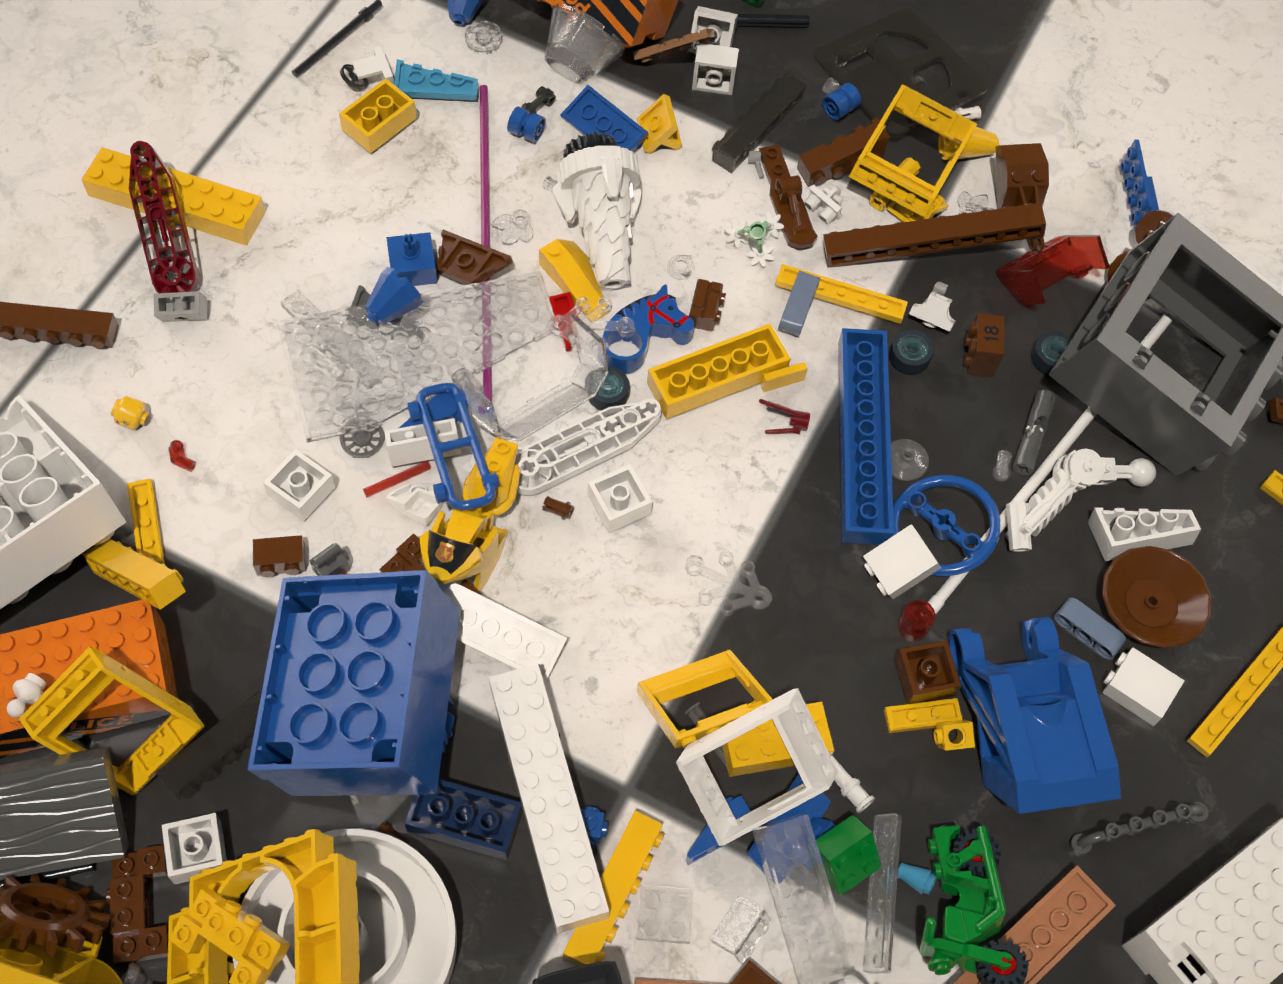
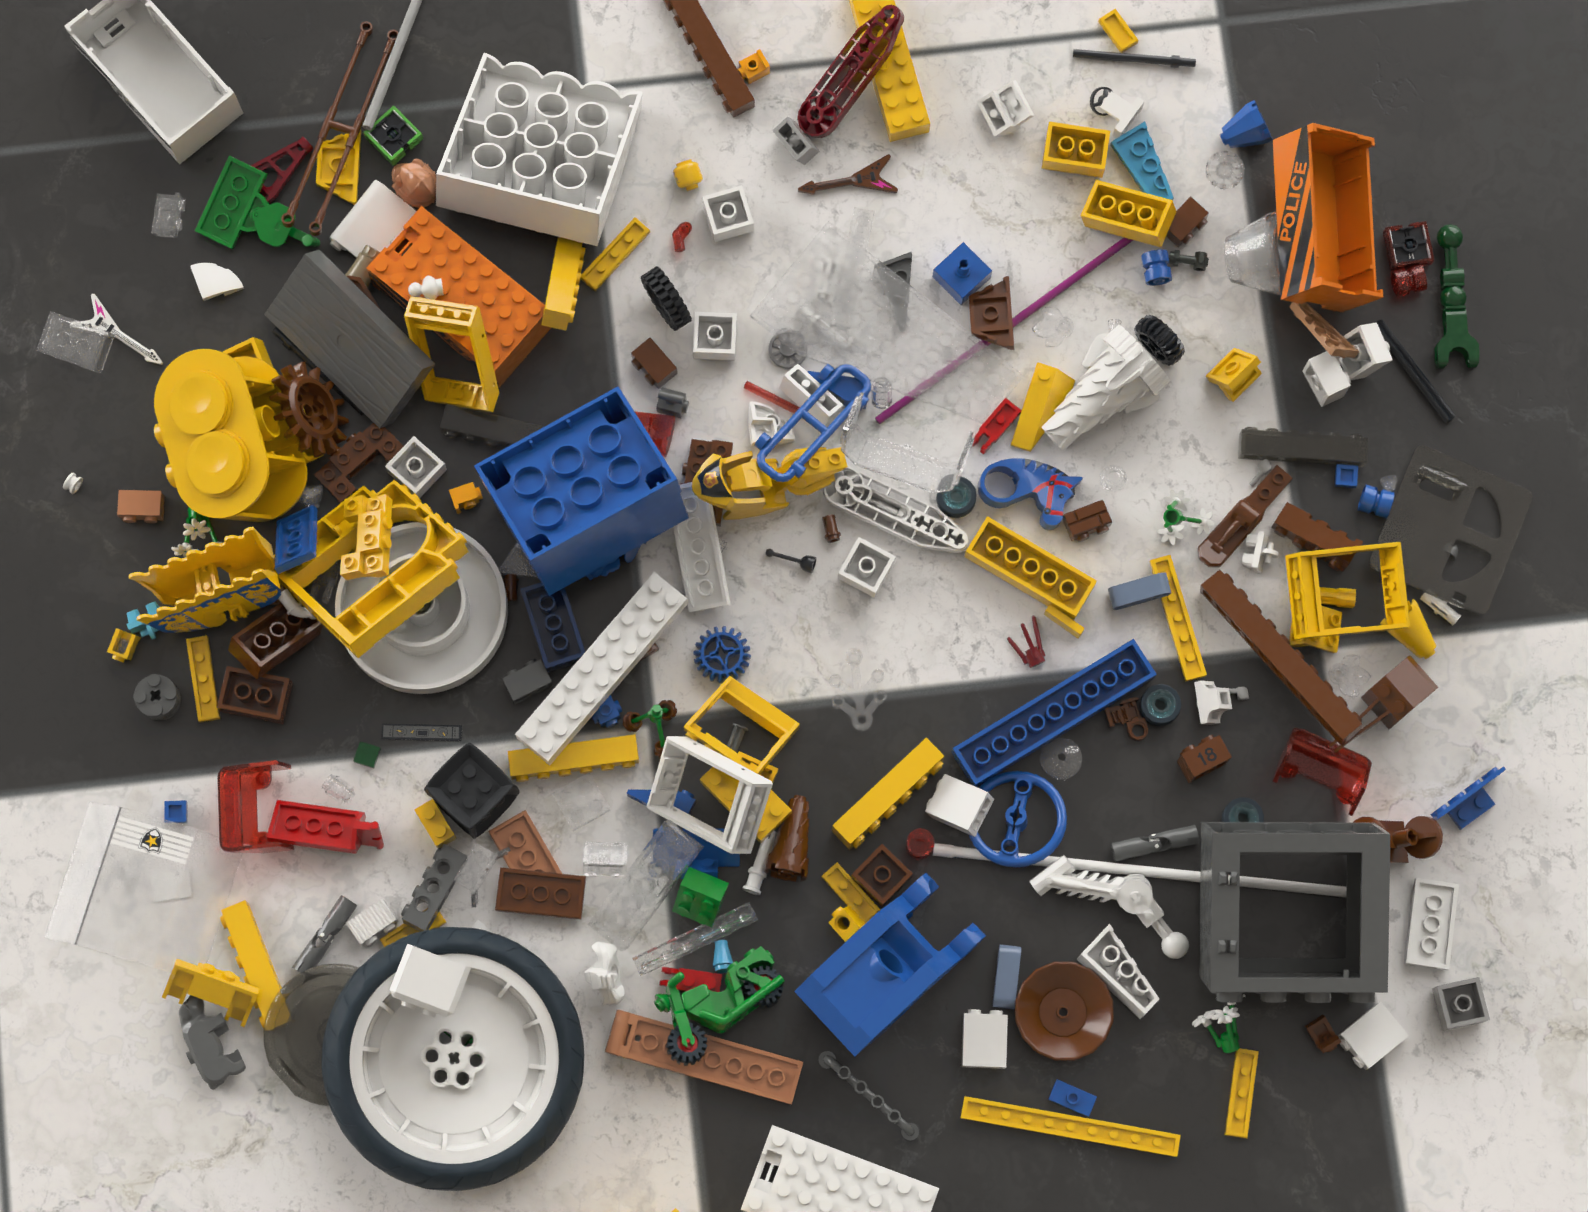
camera: 60 degrees right, 15 degrees up
(84, 296) = (752, 74): none -> light orange brick
(196, 401) = (728, 213): none -> white brick
(207, 487) = (666, 298): none -> black tyre
(262, 280) = (865, 178): none -> reddish brown piece
(264, 819) = (465, 496): none -> light orange brick
(298, 141) = (1005, 109): none -> white brick
(304, 34) = (1118, 31): none -> yellow tile
(391, 298) = (903, 288): blue cone -> none
(466, 109) = (1128, 213): none -> yellow brick
(502, 885) = (527, 681): none -> dark grey brick
(504, 84) = (1186, 221): none -> reddish brown brick
(565, 328) = (995, 445): clear plant -> none
(575, 548) = (807, 562): none -> black hinge
(595, 113) = (1205, 327): blue tile -> none
(618, 682) = (718, 636): none -> blue gear
(629, 771) = (664, 710): none -> plant
(804, 109) = (1346, 476): none -> blue plate
(852, 616) = (887, 794): none -> yellow brick
(852, 740) = (790, 845): none -> reddish brown cone
(905, 383) = (1128, 712): none -> reddish brown piece
(932, 907) = (693, 979): none -> red hinge
(1001, 471) = (1105, 835): clear pin -> none
(1238, 647) = (1072, 1098): none -> blue plate
(1253, 485) = (1228, 1039): none -> plant

